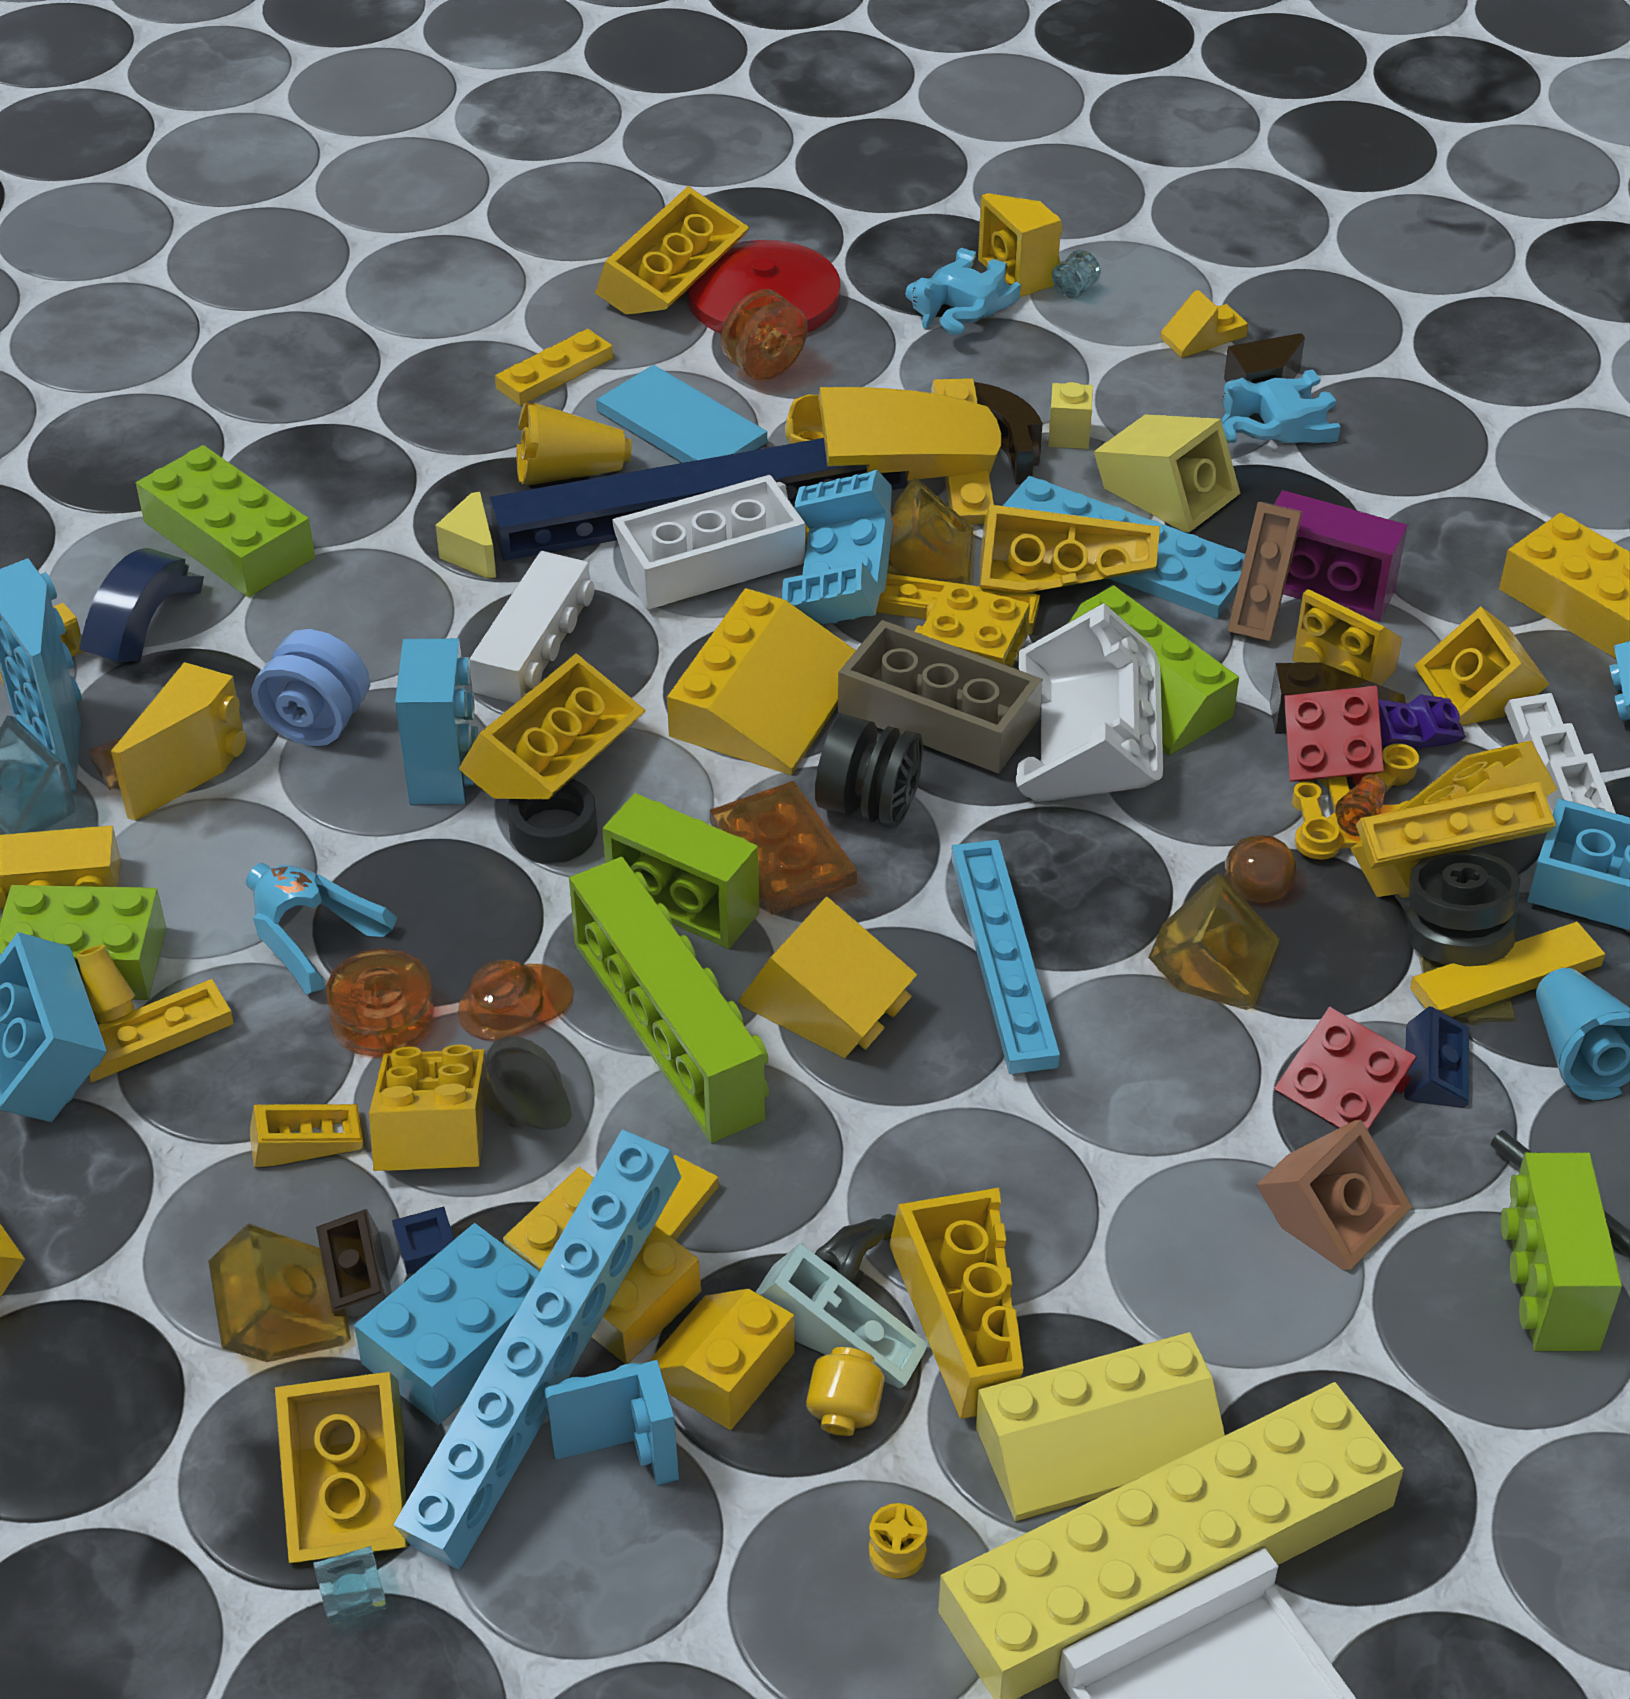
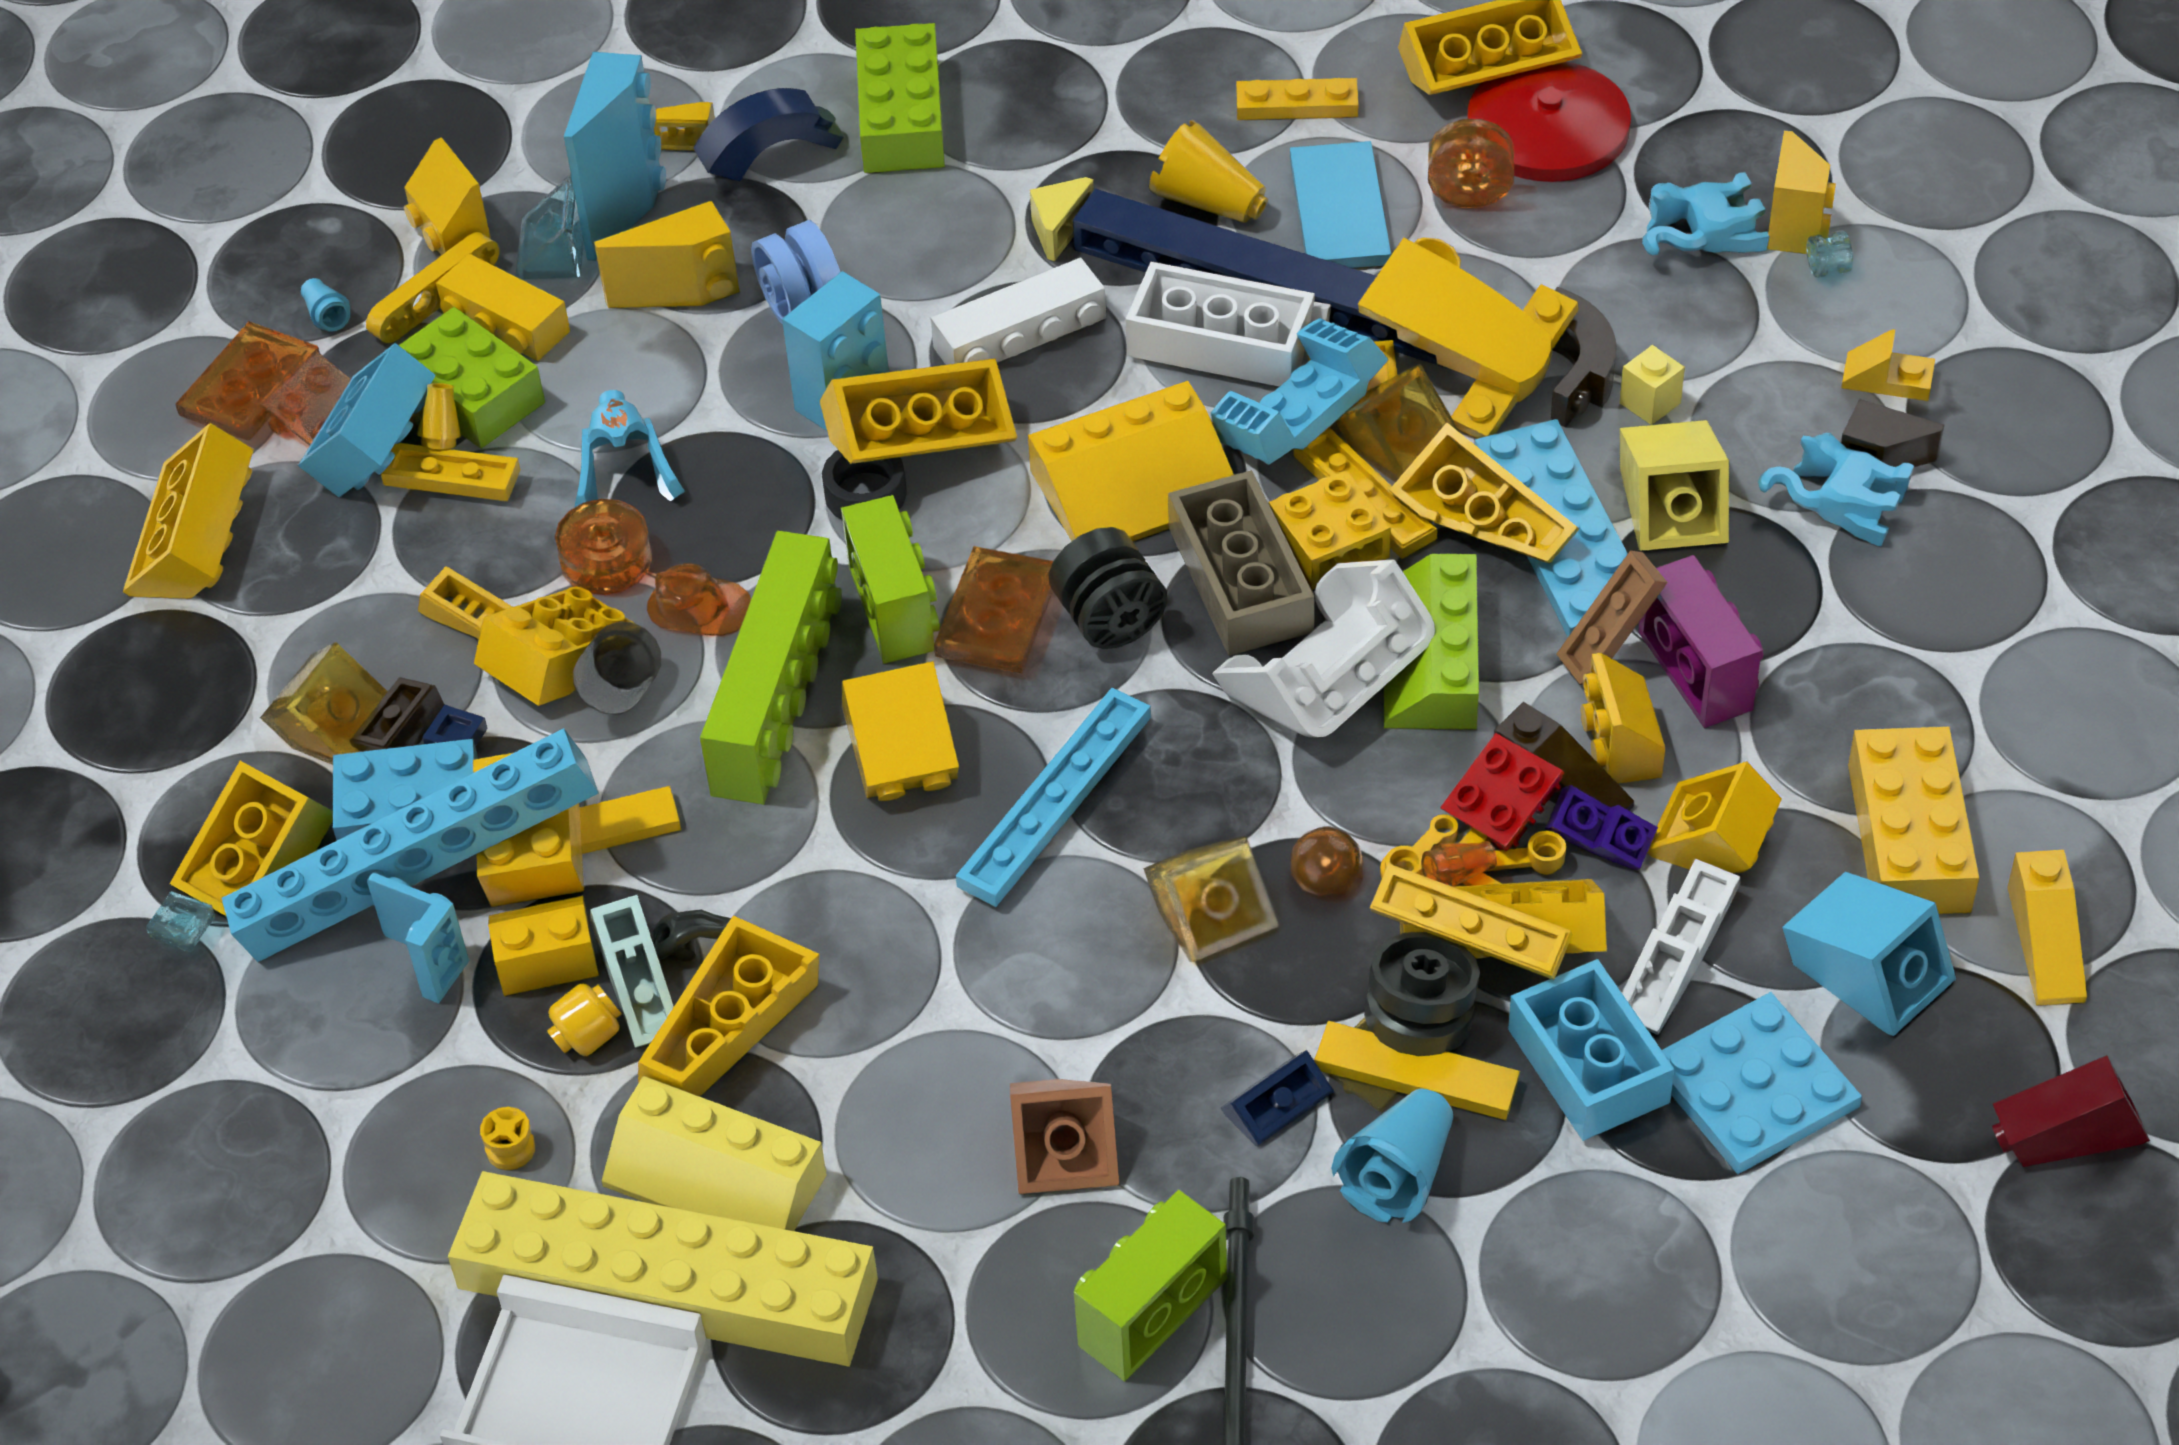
camera: 45 degrees right, 5 degrees up
(1345, 1071) = (1186, 1056): hinge -> none

